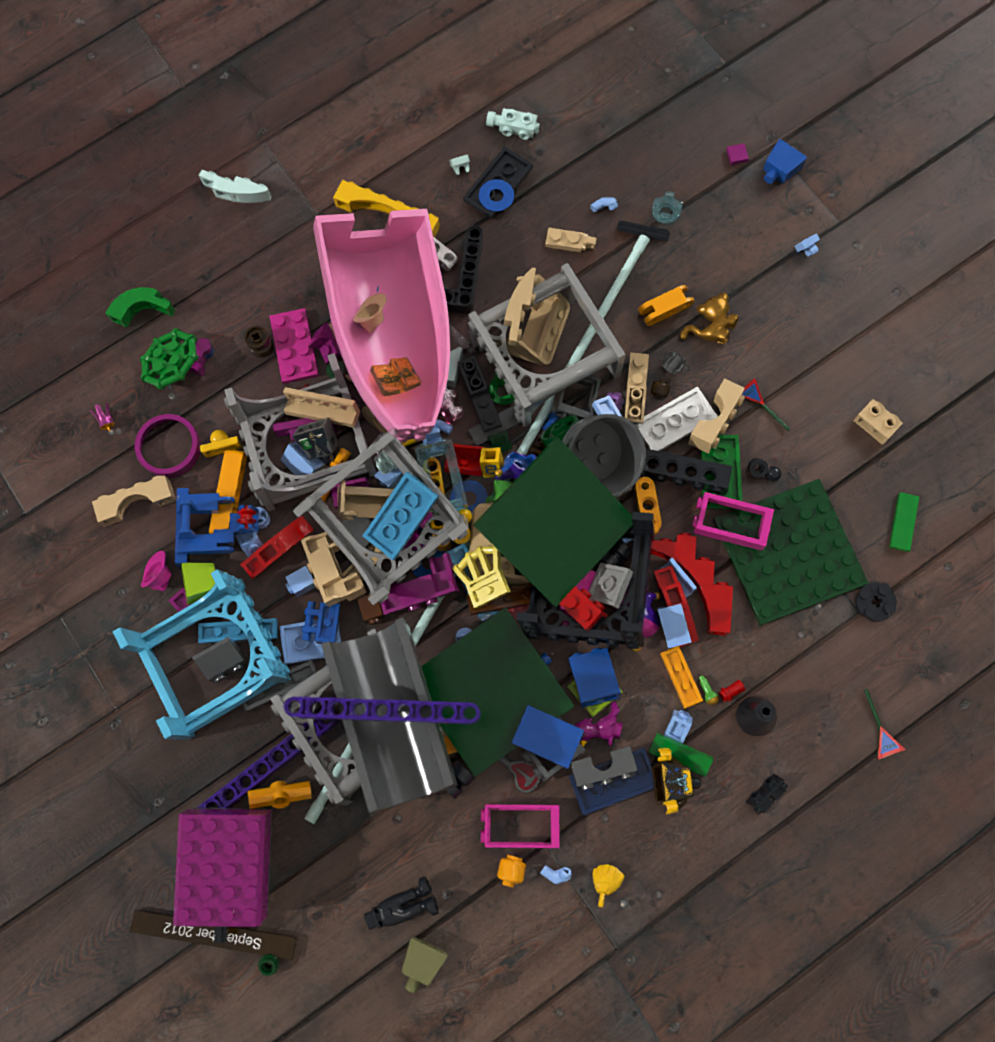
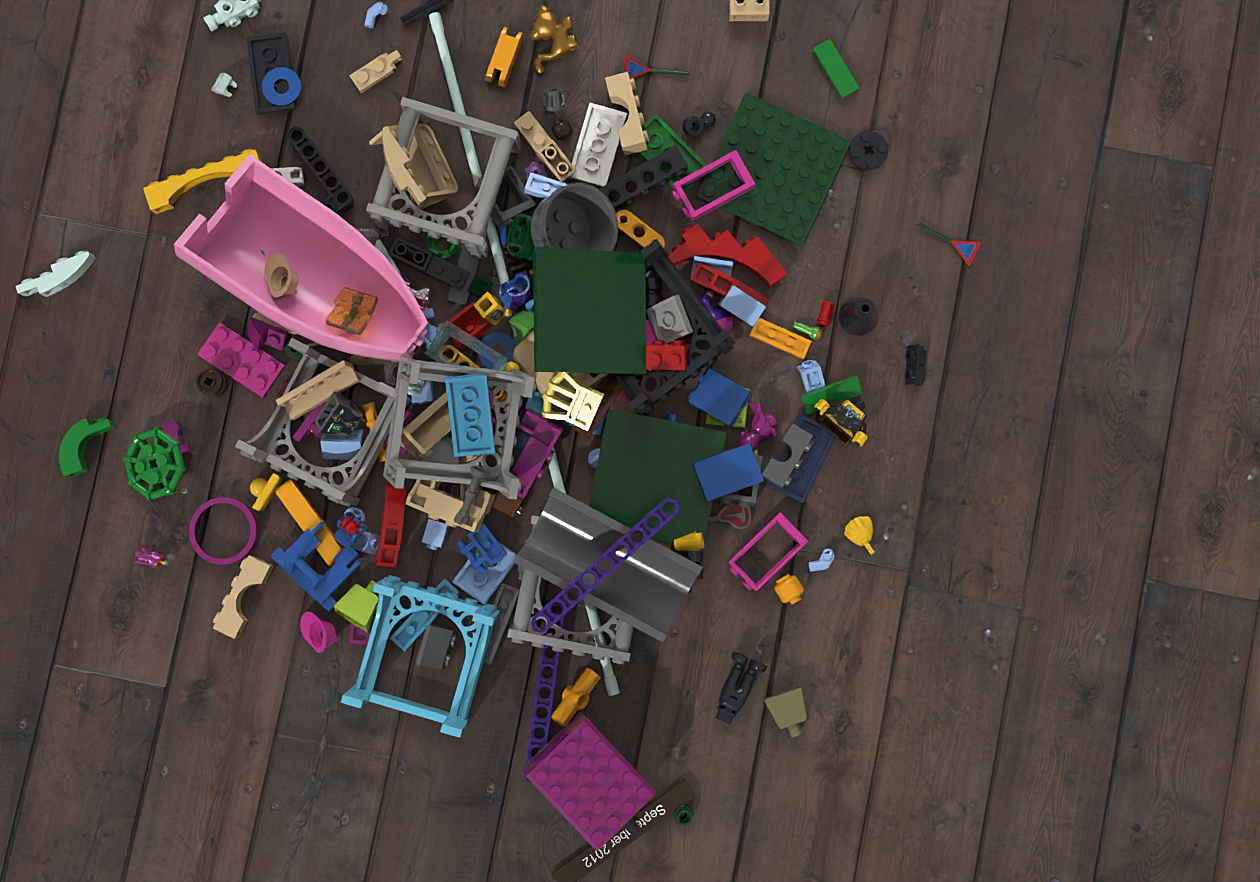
camera: 50 degrees left, 10 degrees up
(329, 582) = (477, 473): none -> dark grey piece
(471, 762) = (690, 542): none -> yellow cone

